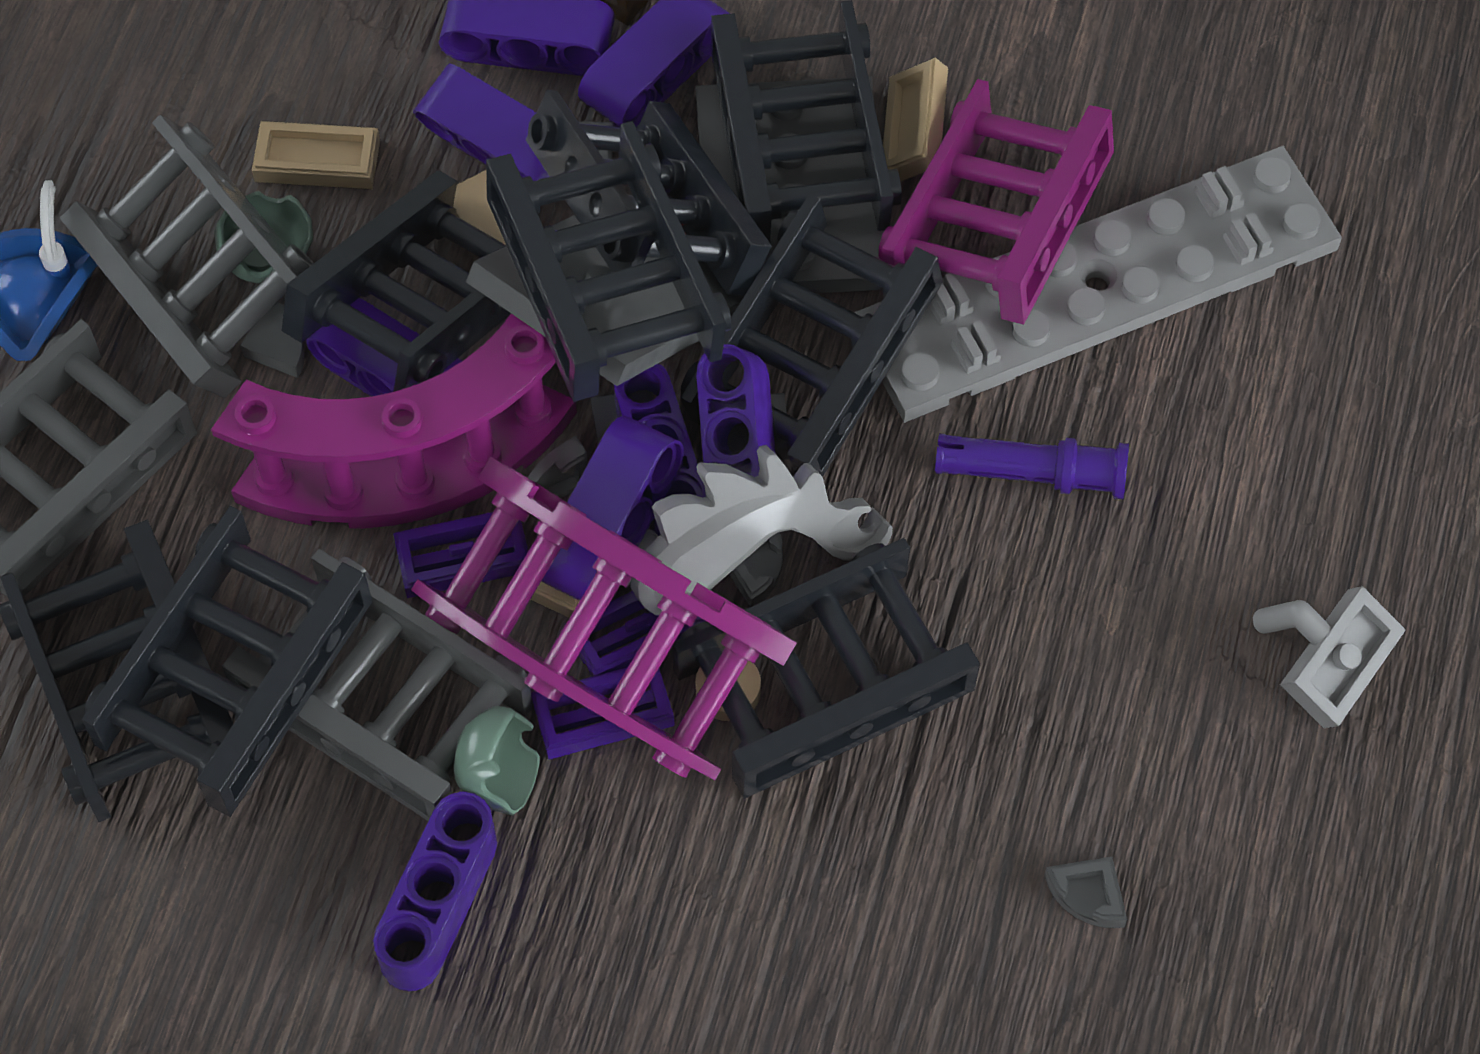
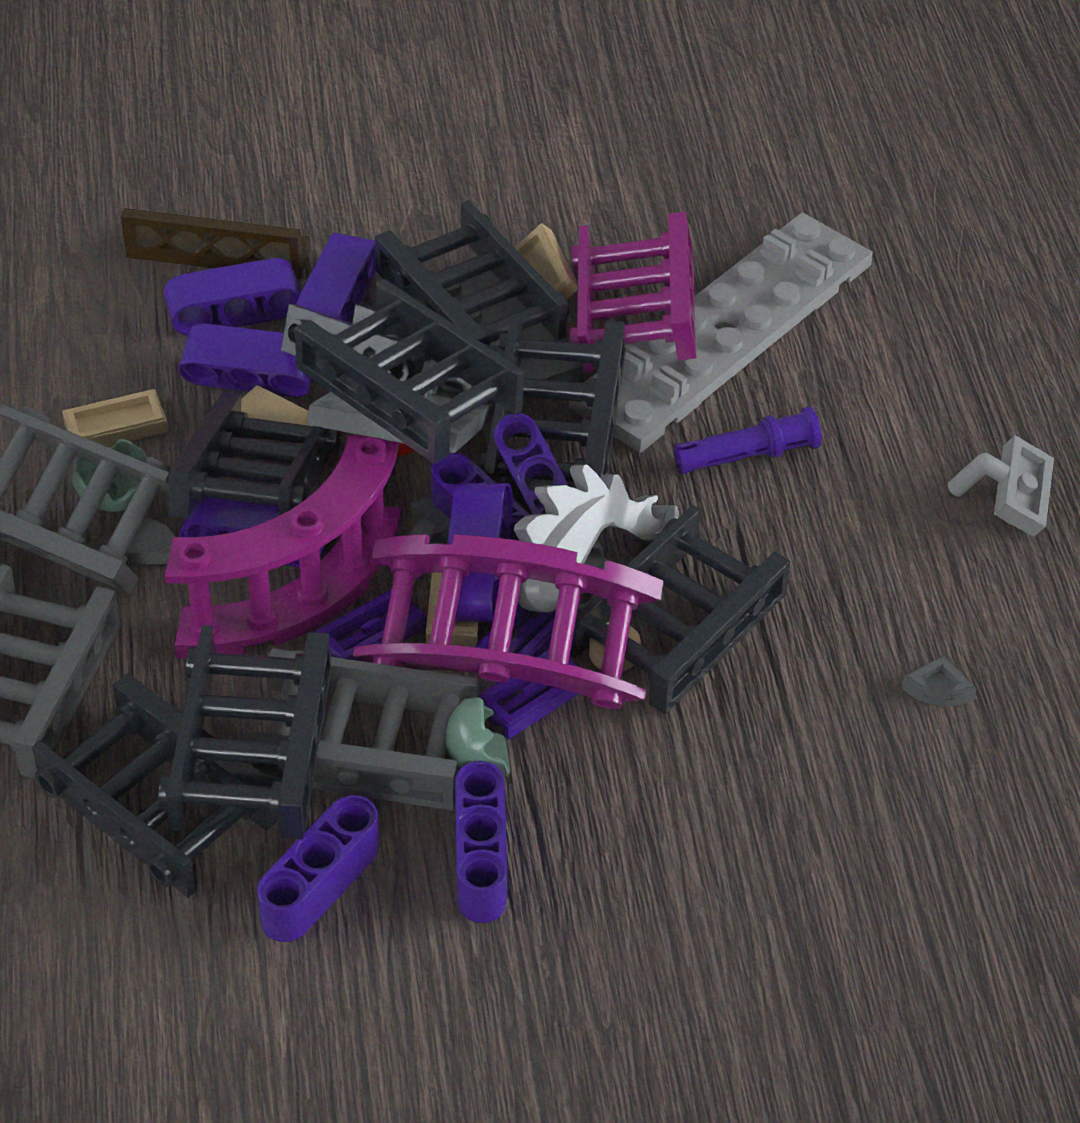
camera: 25 degrees left, 15 degrees down
(228, 881) = (312, 889): none -> dark purple beam

